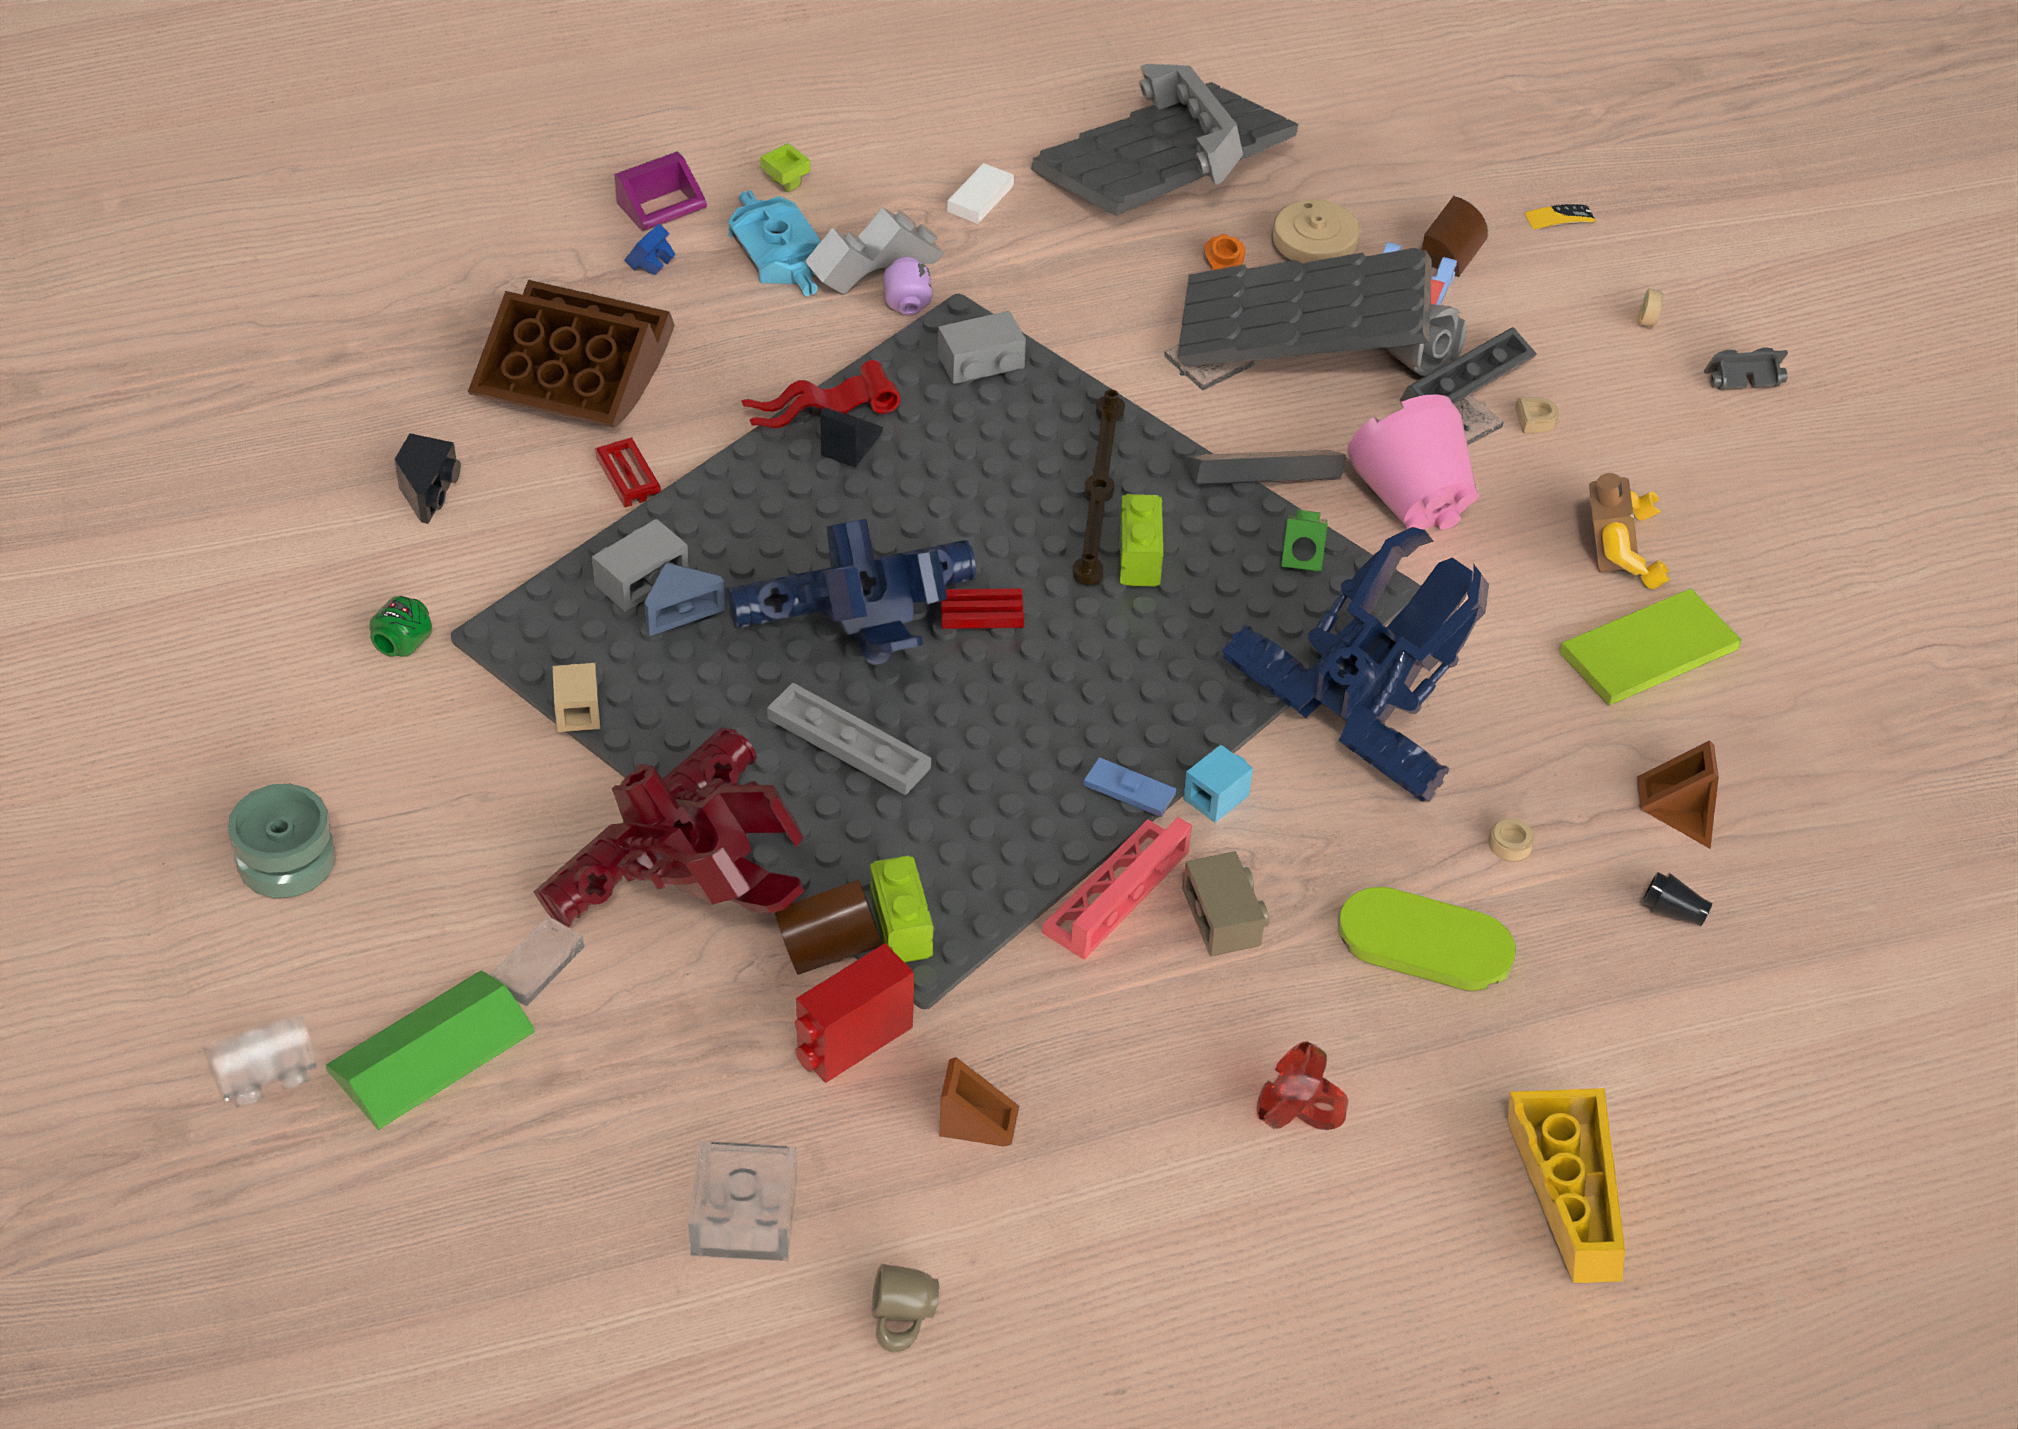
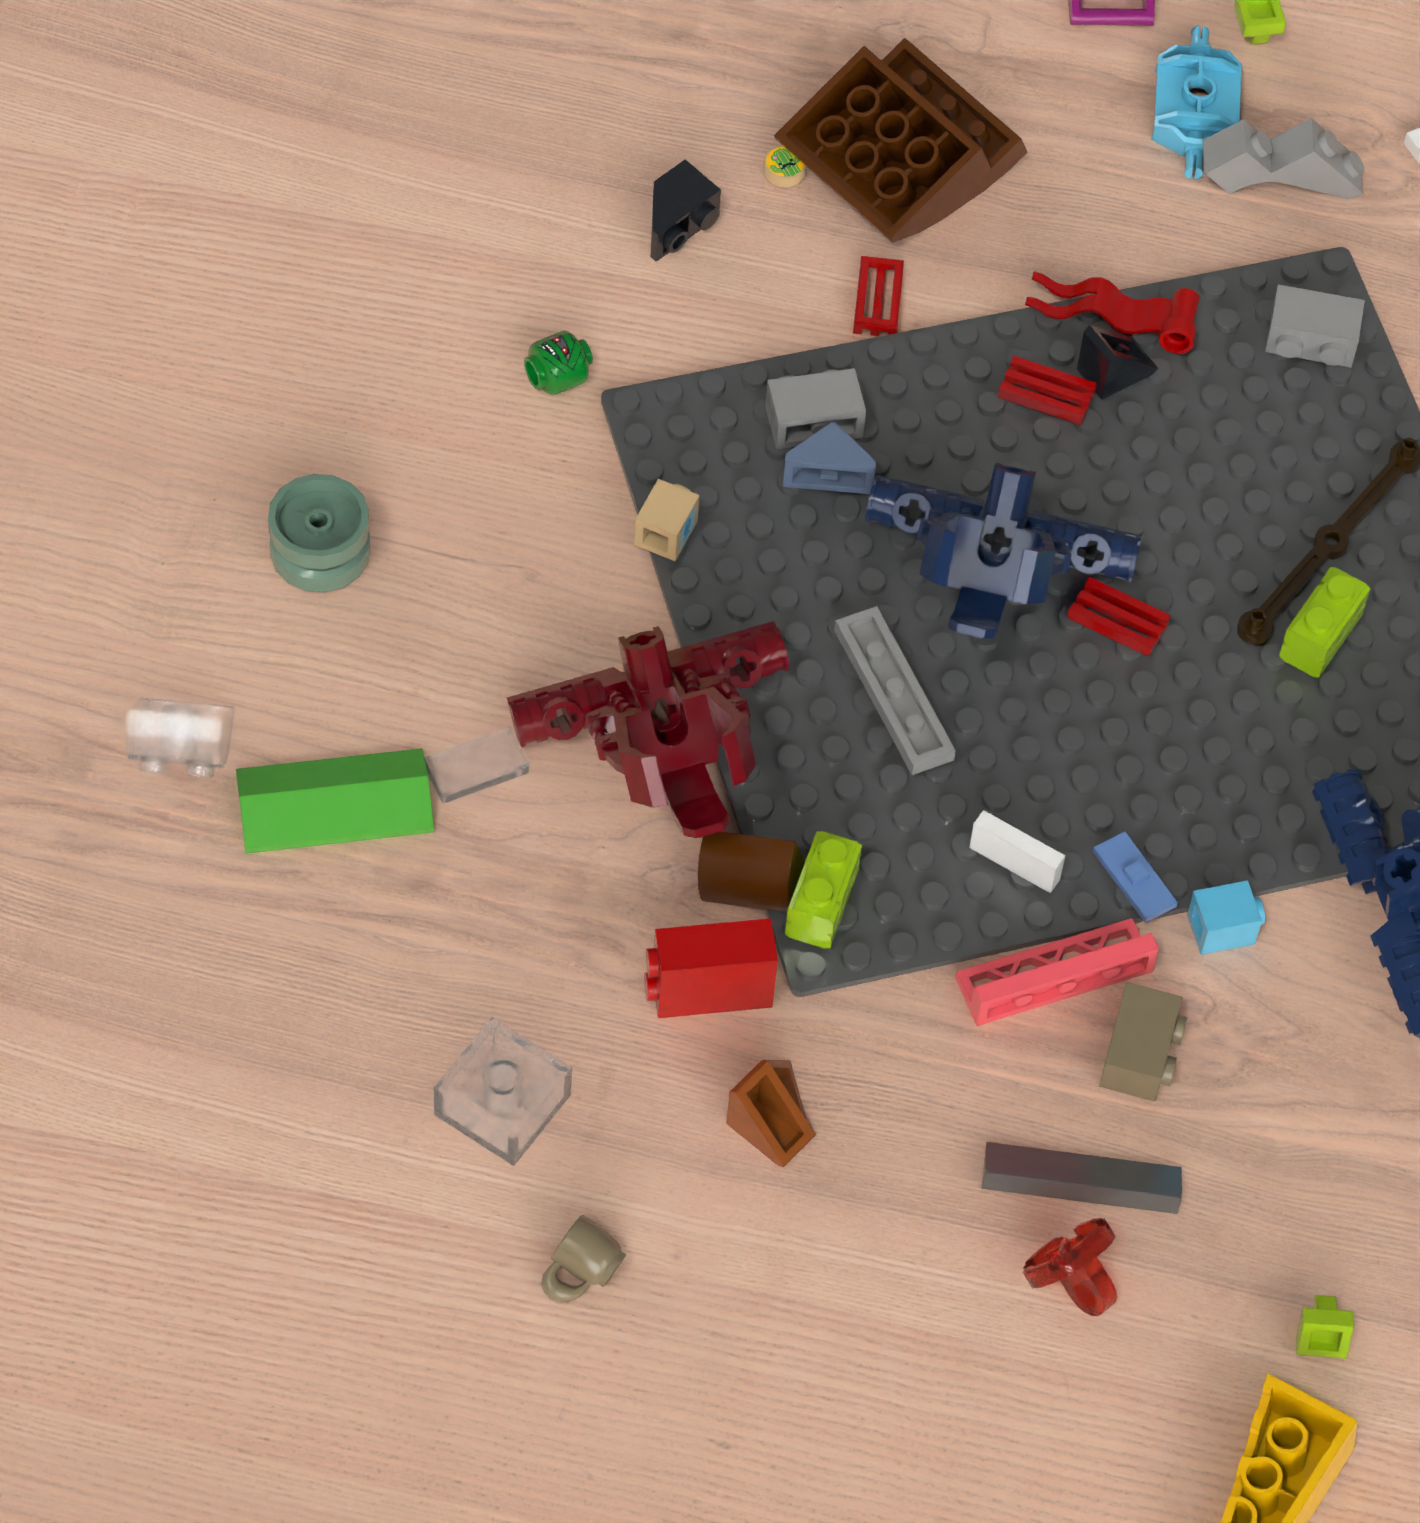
camera: 30 degrees right, 10 degrees up
(487, 414) = (783, 168): none -> tile
(649, 248) = (1063, 49): blue tile -> none
(811, 476) = (1049, 384): none -> red tile
(907, 285) = (1292, 217): lavender head -> none
(1031, 808) = (1017, 851): none -> white tile
(1250, 1029) = (1082, 1178): none -> dark grey slope
(1427, 938) = (1320, 1180): lime tile -> none
(1517, 1042) = (1324, 1329): none -> lime tile

